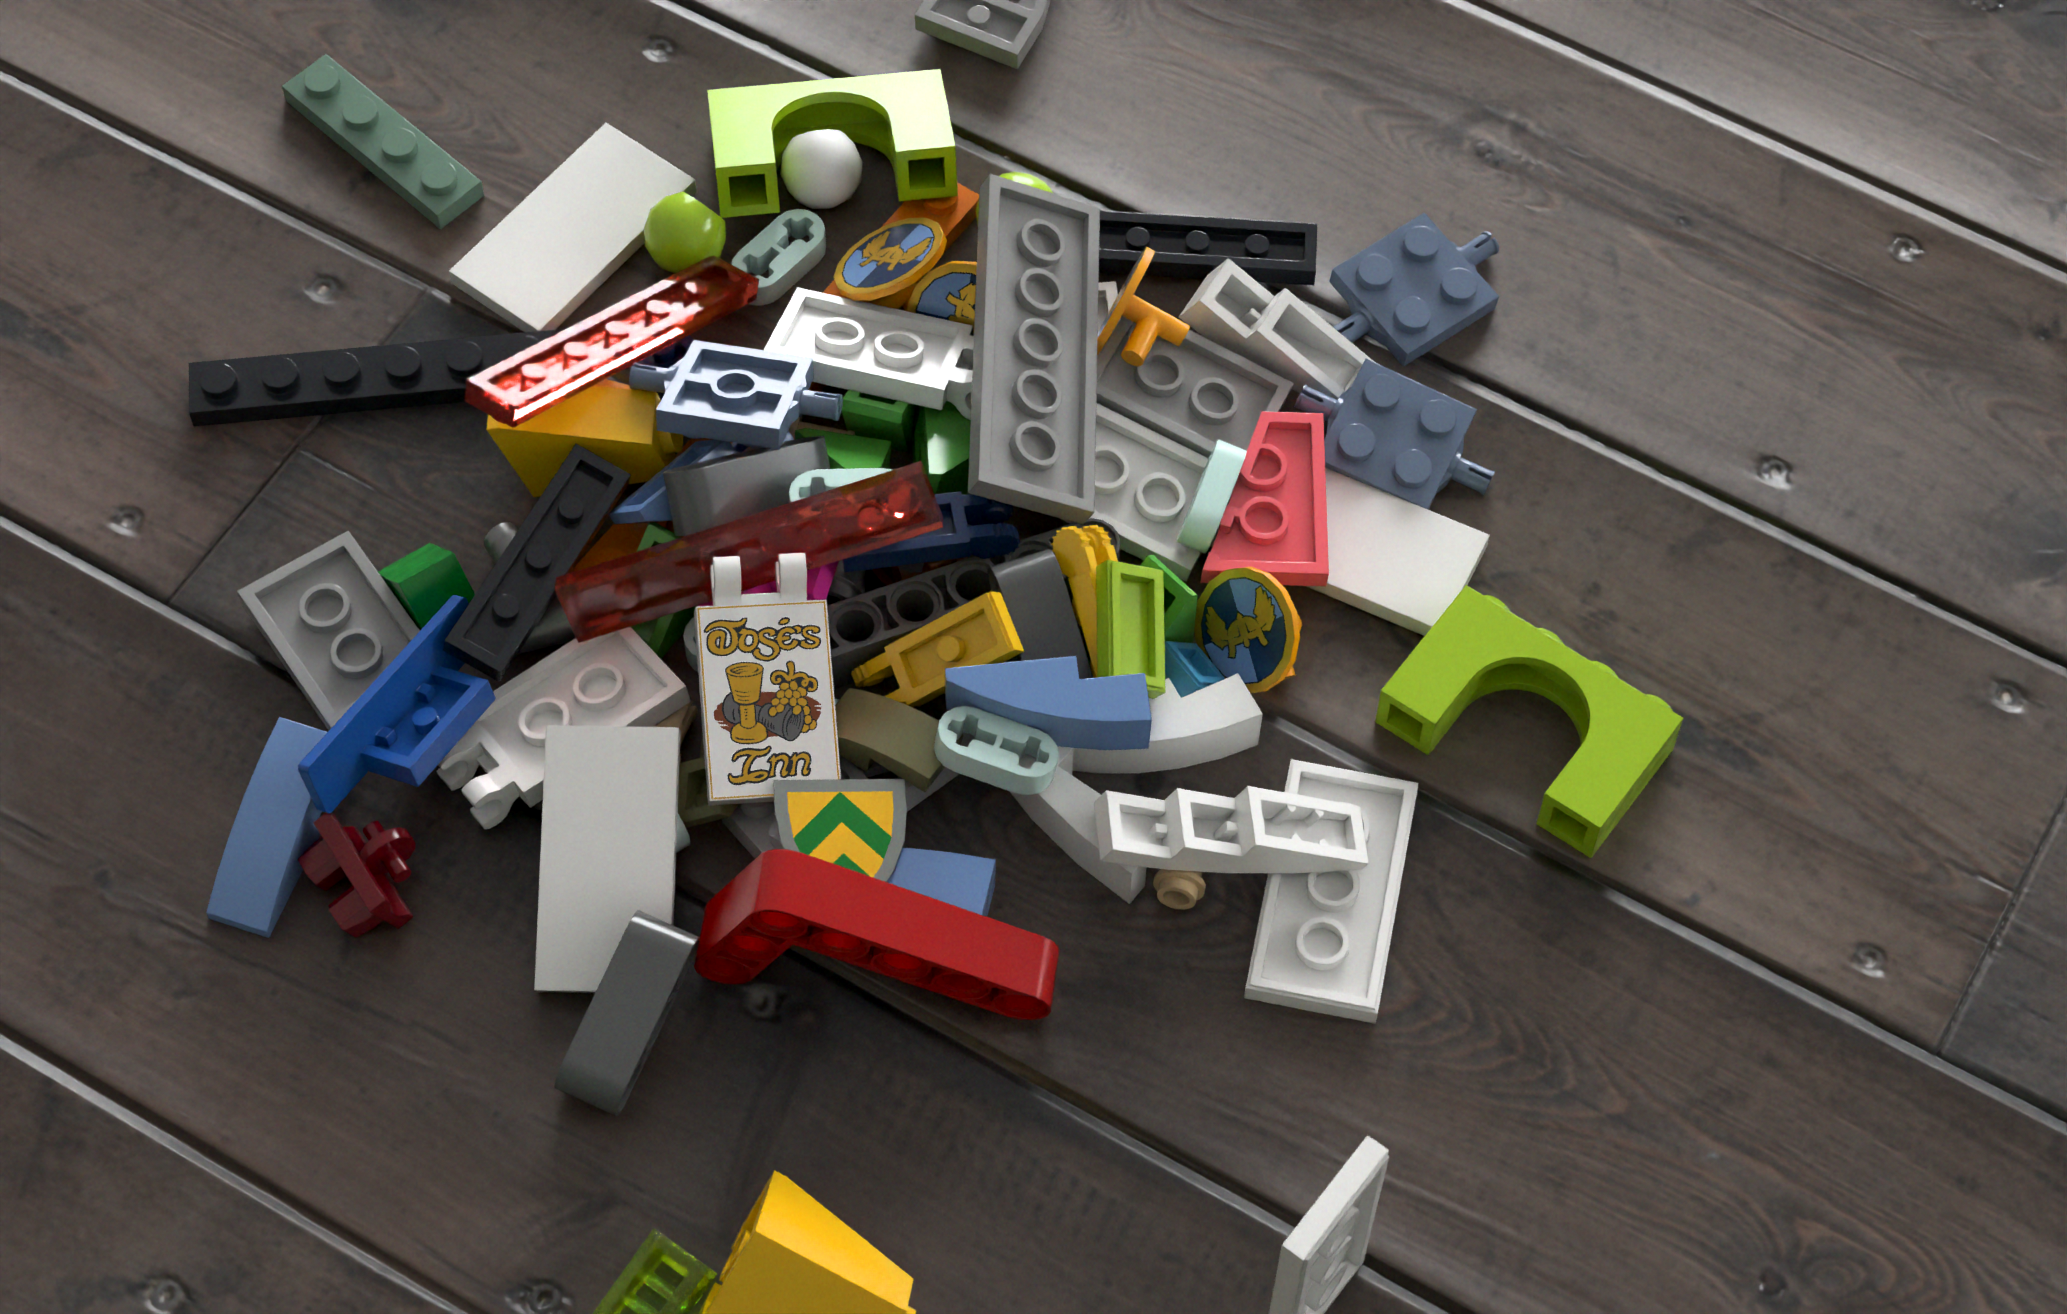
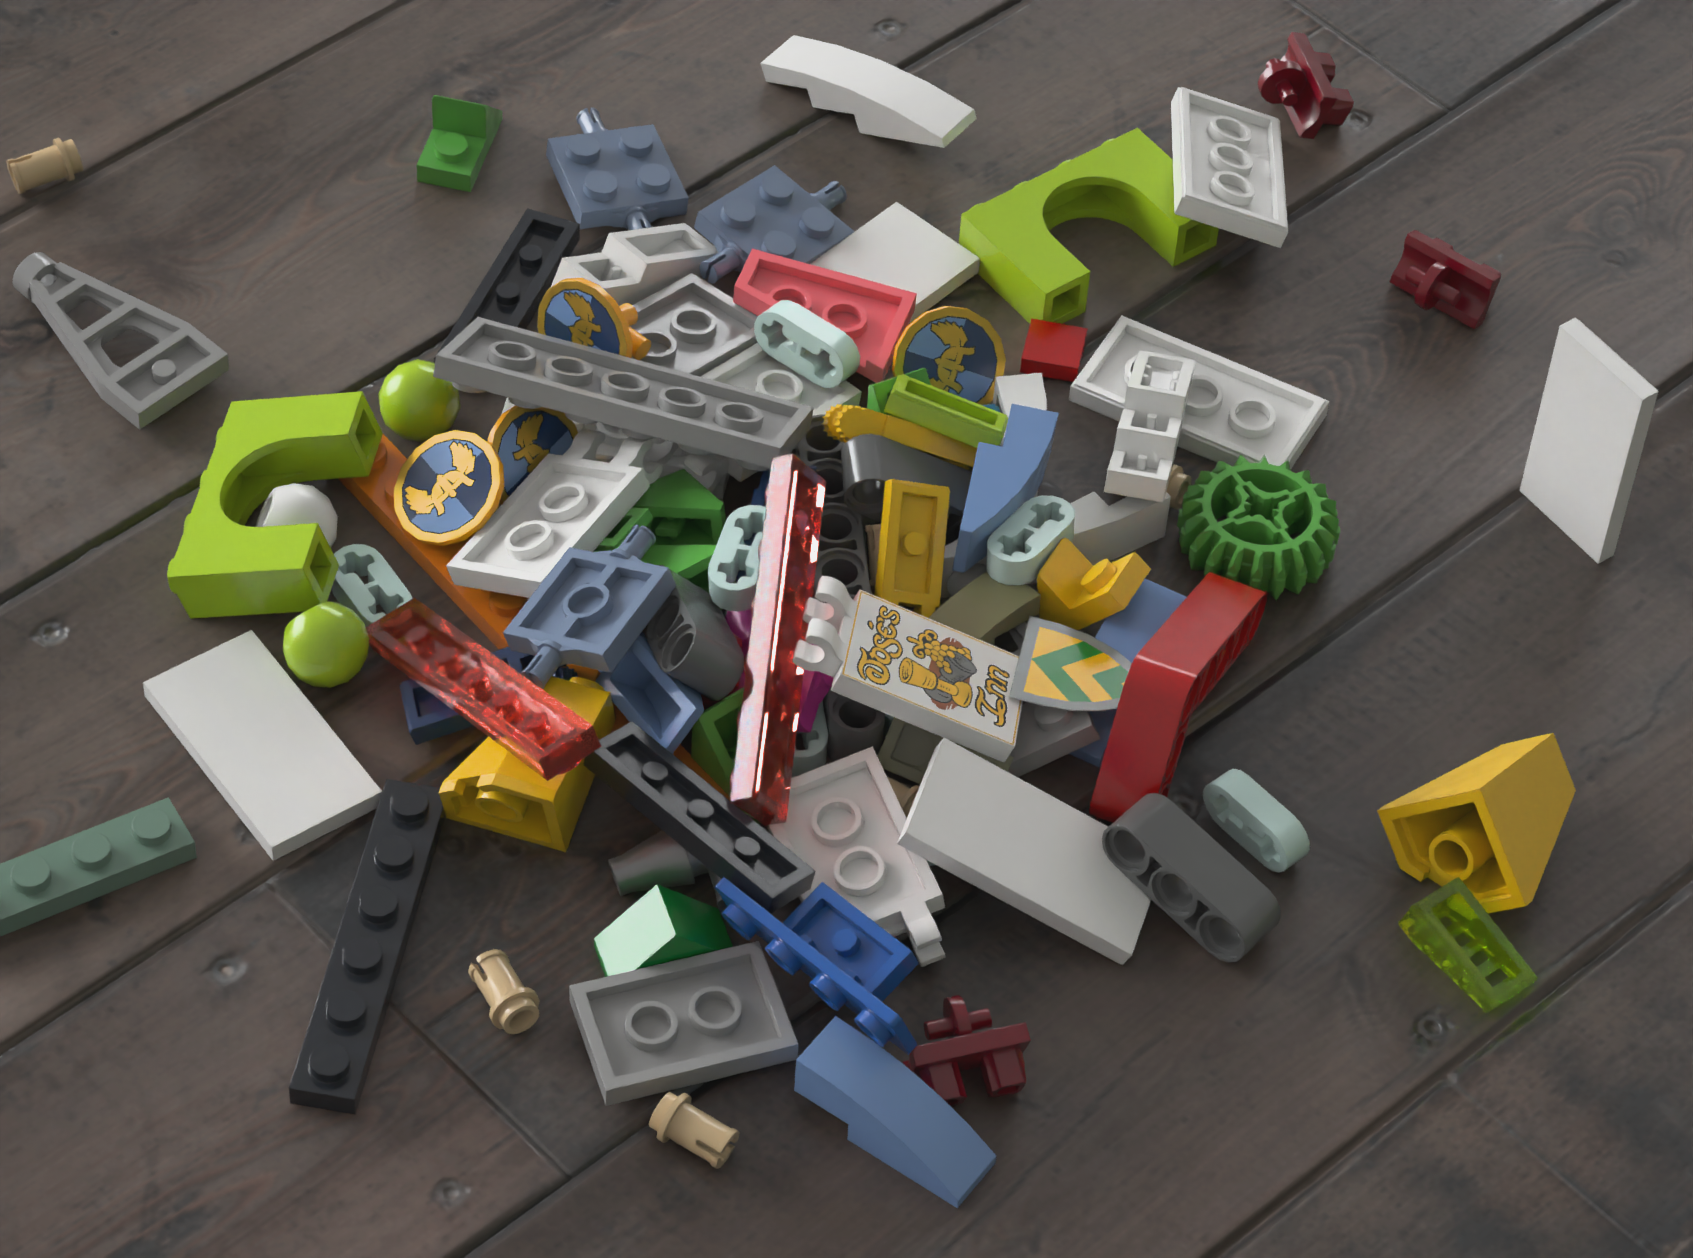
camera: 75 degrees left, 10 degrees down
(228, 663) = (693, 1129): none -> tan pin
(339, 489) = (511, 1003): none -> tan pin
(739, 1064) = (1256, 820): none -> light aqua beam
(966, 815) = (1083, 594): none -> yellow slope
(1150, 943) = (1262, 511): none -> bright green gear
(1344, 733) = (1053, 350): none -> red tile
(1410, 150) = (457, 143): none -> bright green slope
(1607, 1089) = (1445, 279): none -> dark red hips
(1636, 466) = (878, 94): none -> white slope
(1670, 823) = (1228, 167): none -> white tile
(1848, 900) = (1304, 87): none -> dark red hips

